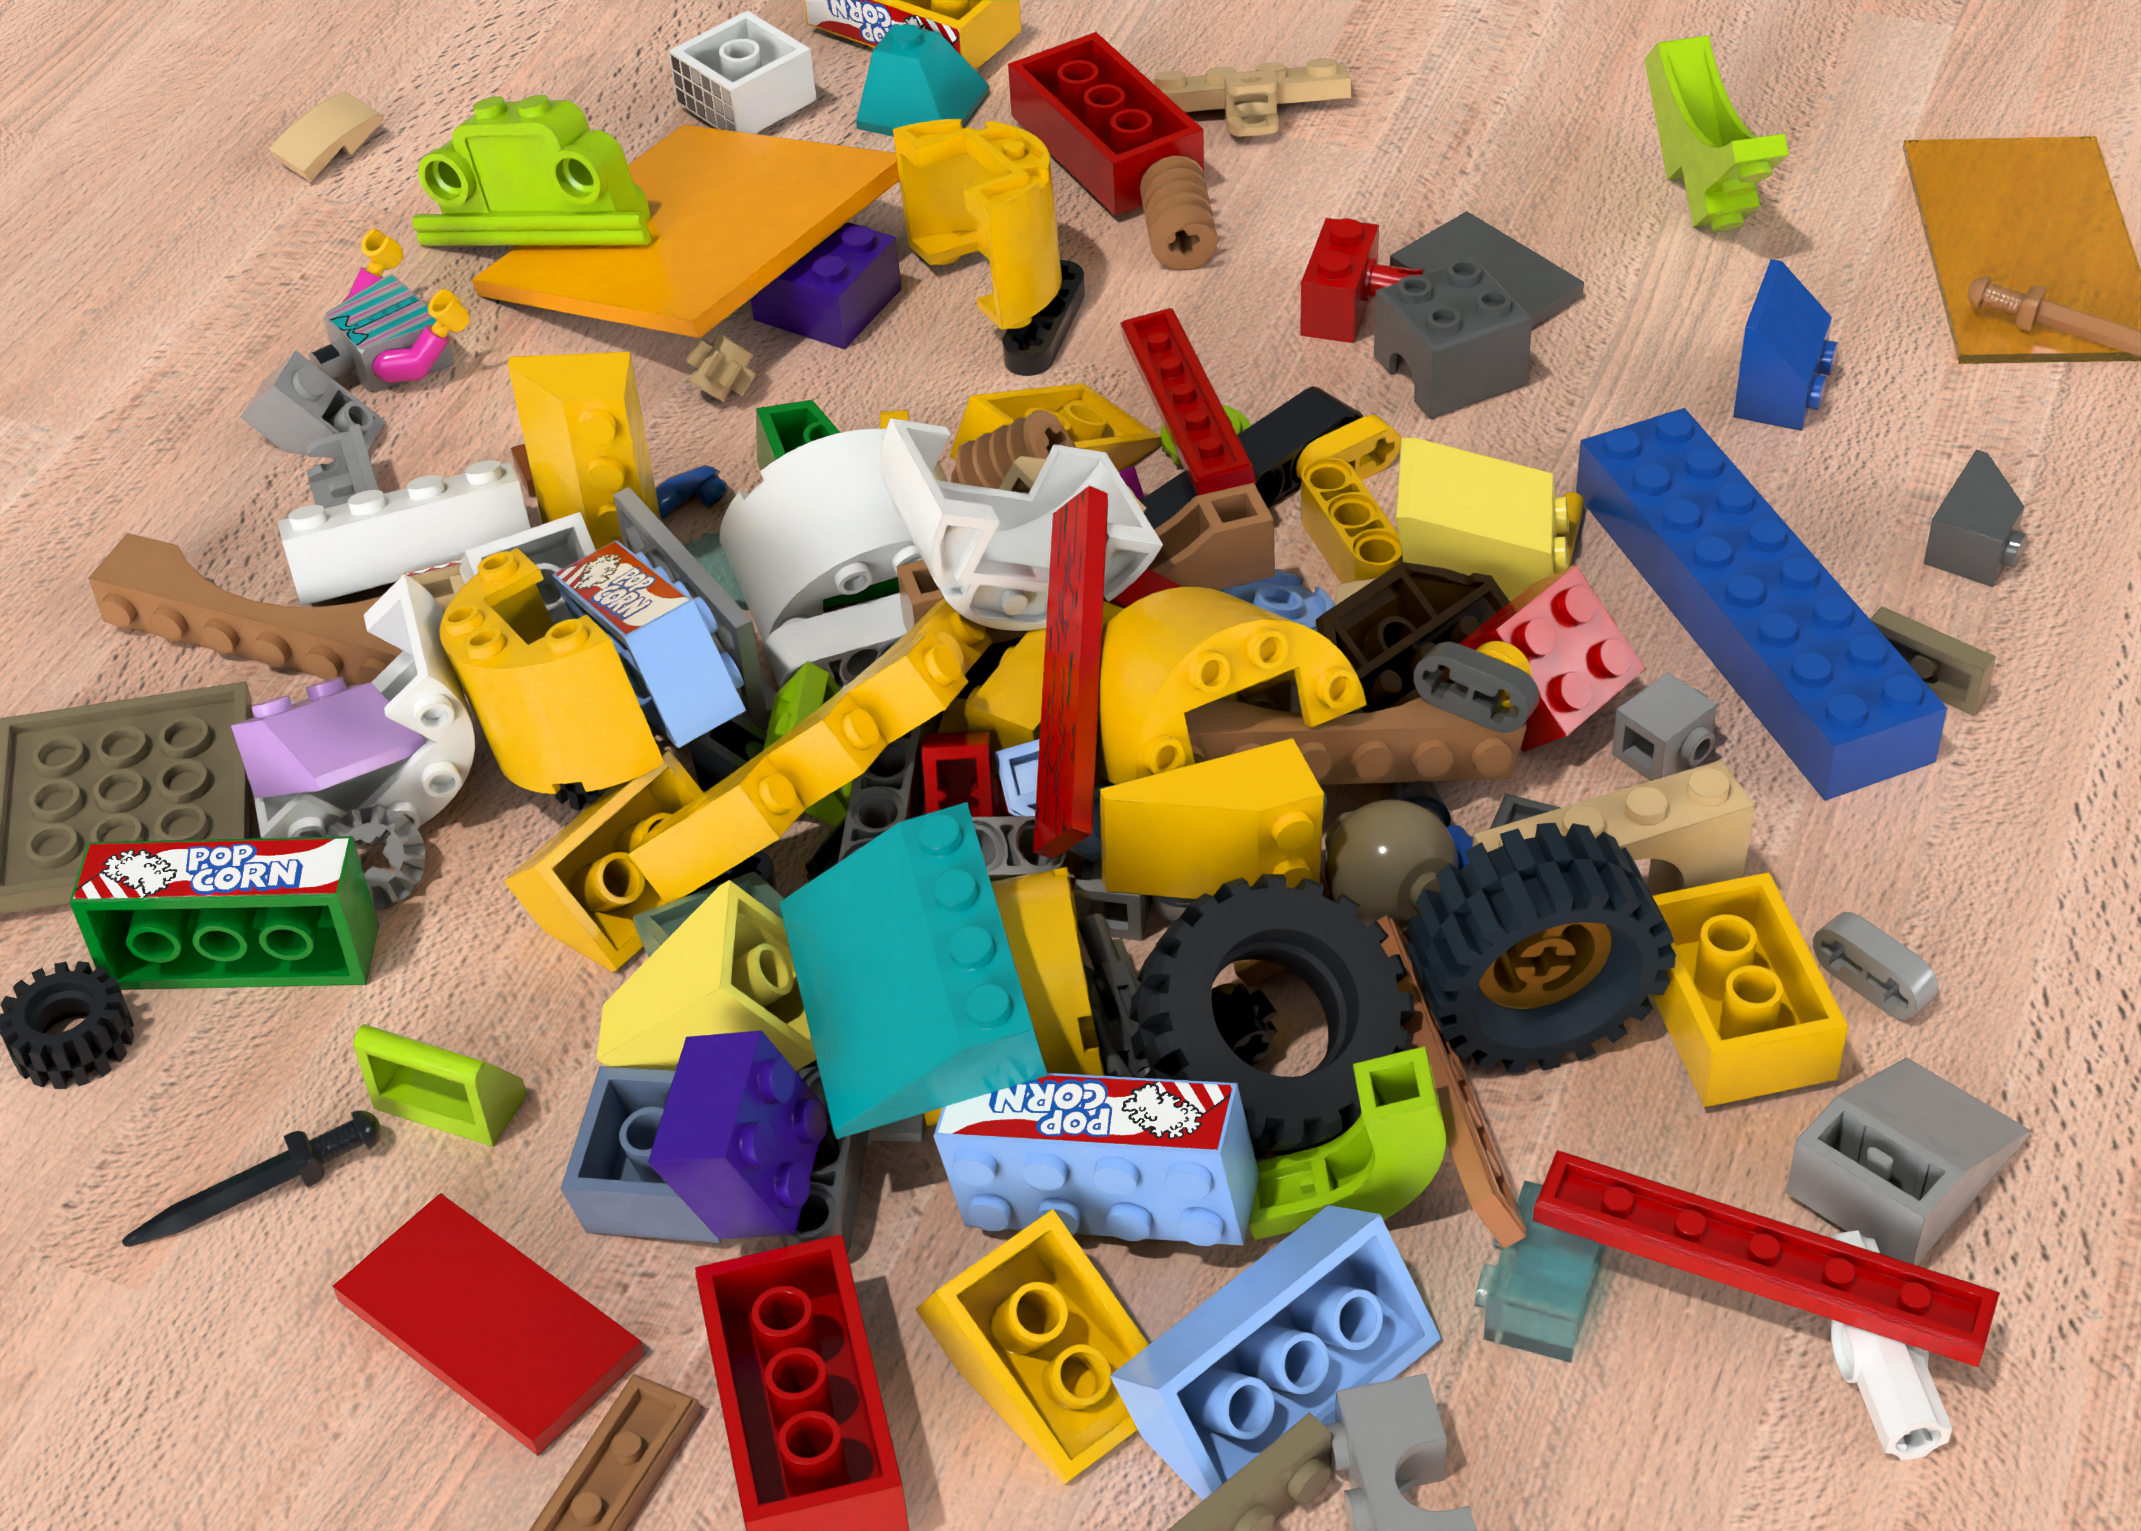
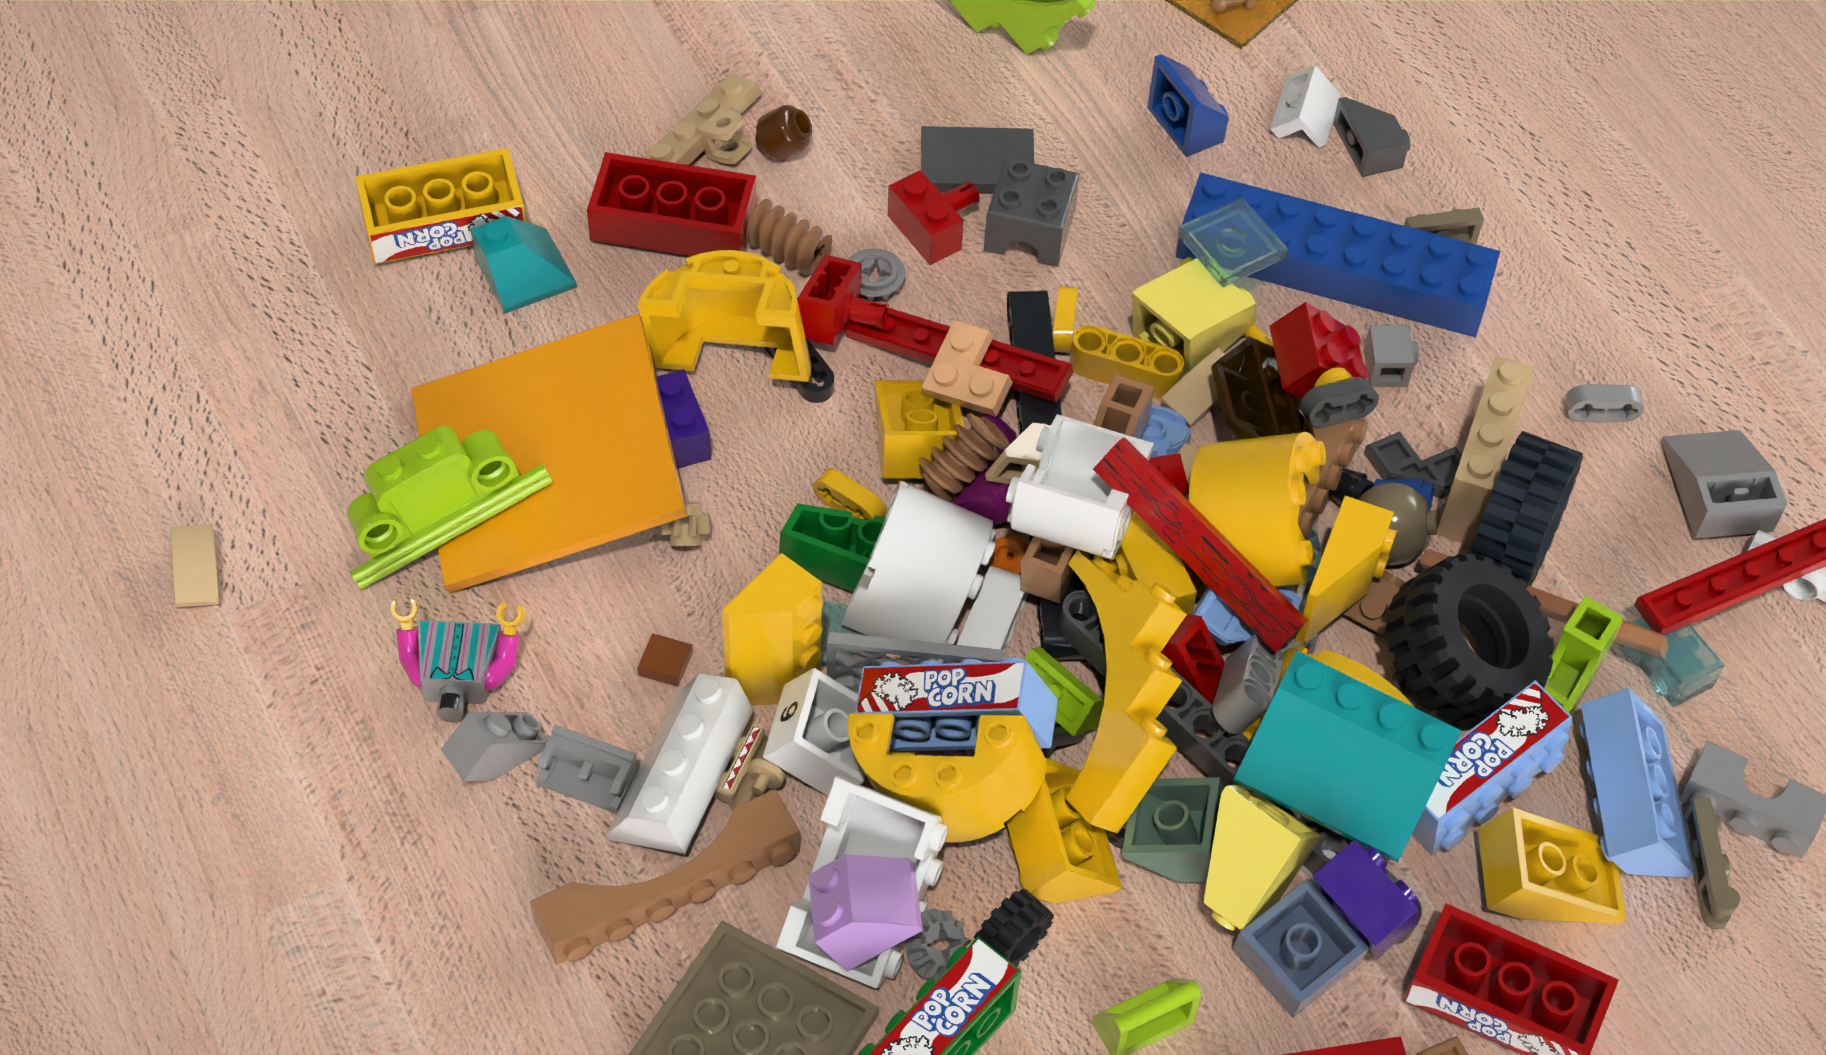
camera: 55 degrees left, 10 degrees up
(416, 868) = (1016, 926): none -> black tyre
(743, 75) = (415, 329): white brick -> none
(1125, 278) = (834, 299): none -> red brick
(1137, 410) = (958, 374): none -> light nougat plate
(1238, 299) = (890, 272): none -> light grey gear
(1309, 129) = (783, 132): none -> reddish brown head
(1602, 477) = (1232, 242): none -> clear light blue tile
(1746, 993) = (1612, 460): yellow brick -> none
(1938, 453) = (1306, 104): none -> white panel

